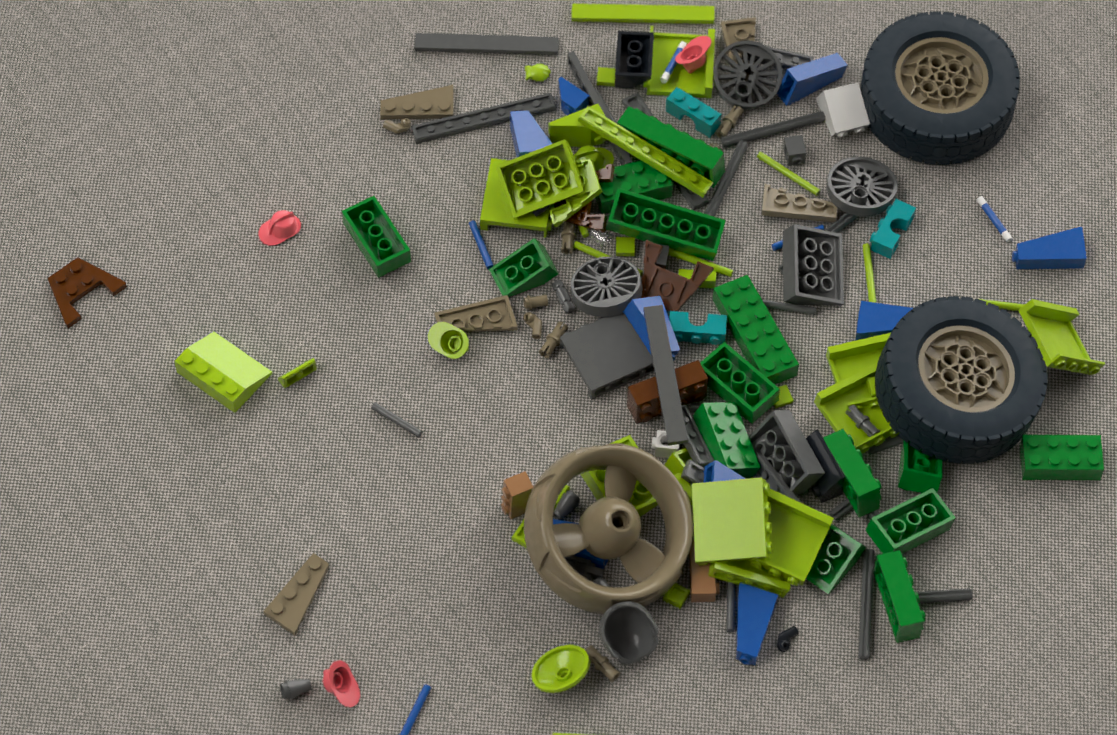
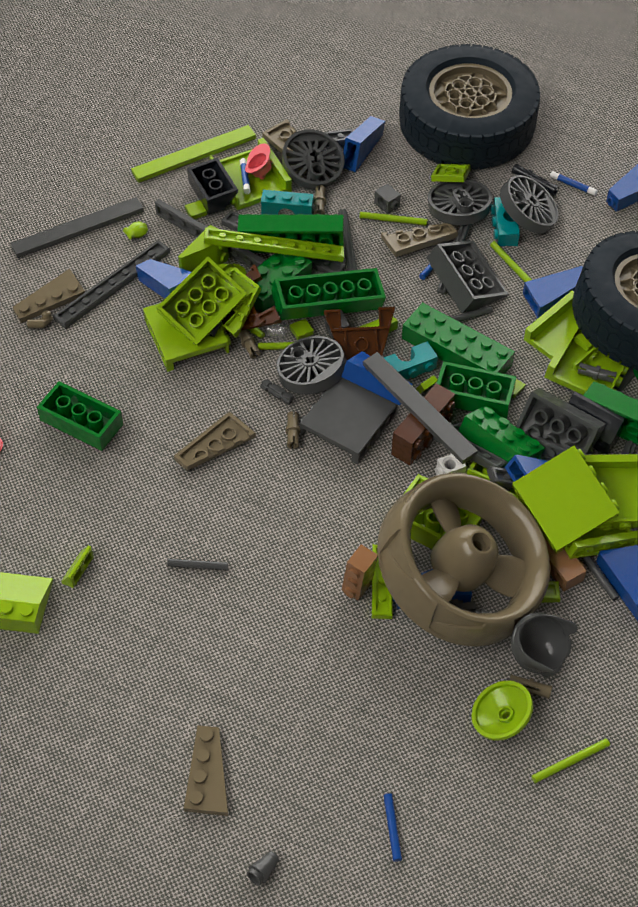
camera: 30 degrees left, 5 degrees down
(341, 682) = (306, 838): coral piece -> none
(448, 340) = (203, 471): lime piece -> none
(481, 245) = (180, 385): blue bar -> none
(524, 269) = (229, 384): green slope -> none
(535, 301) = (253, 408): dark tan pin -> none
(535, 323) = (267, 424): dark tan arm -> none
(571, 97) = (177, 235): blue slope -> none
(692, 259) = (370, 314): lime bar -> none
(698, 356) = (426, 384): none -> lime tile
(773, 129) = (360, 189): dark grey axle -> none
(843, 110) = (404, 153): white slope -> none
(874, 152) = (450, 173): none -> lime tile
(918, 218) = (525, 208): none -> dark grey piece
(952, 190) = (550, 187): none -> black pin

